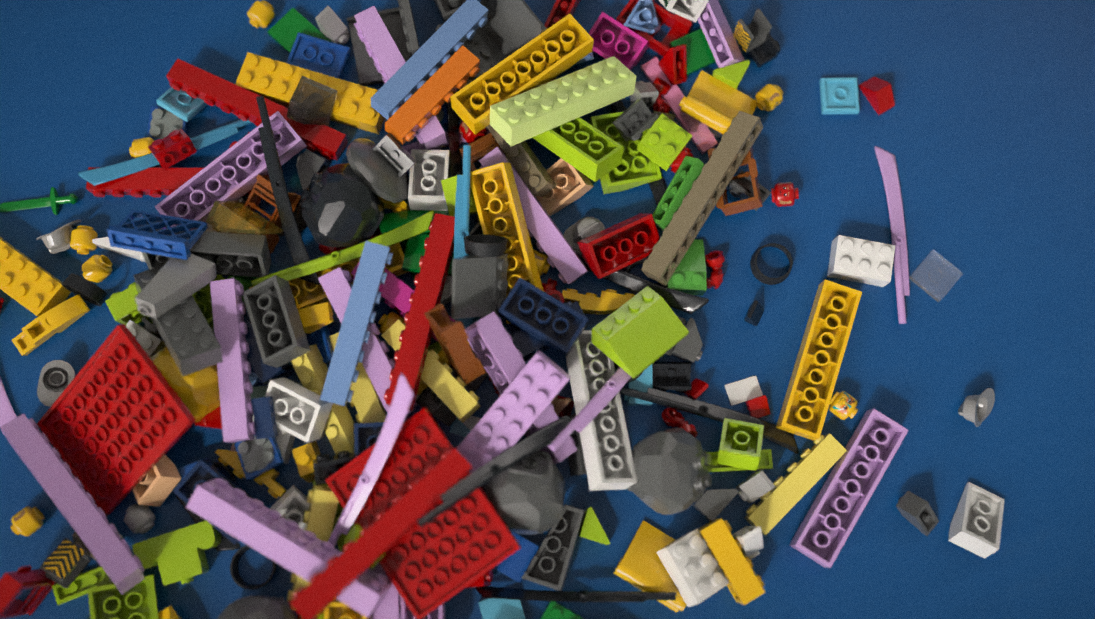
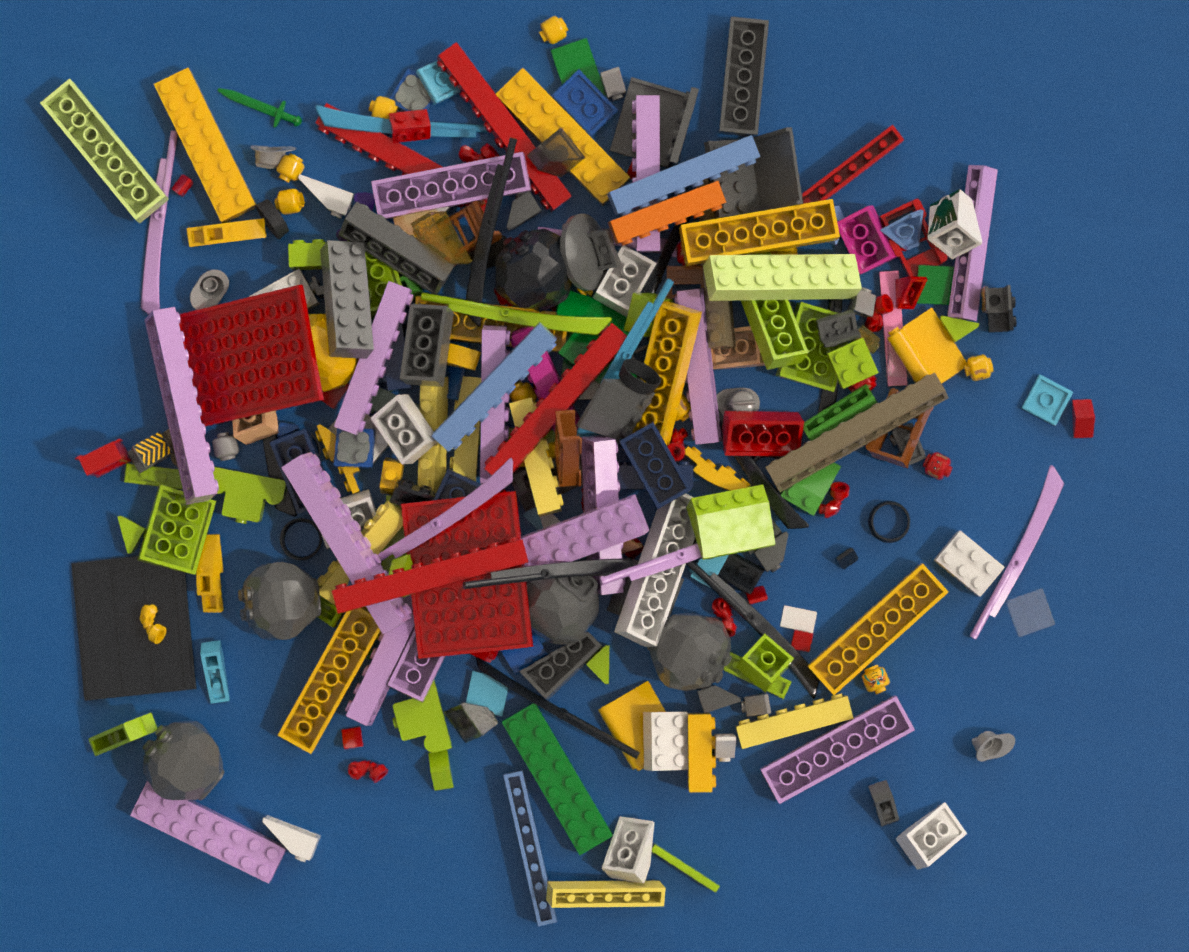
camera: 30 degrees right, 10 degrees up
(27, 521) = (131, 397): yellow head -> none
(156, 241) = (358, 223): blue fence -> none
(174, 284) = (361, 270): light grey slope -> none
(264, 417) = (376, 423): dark blue tile -> none

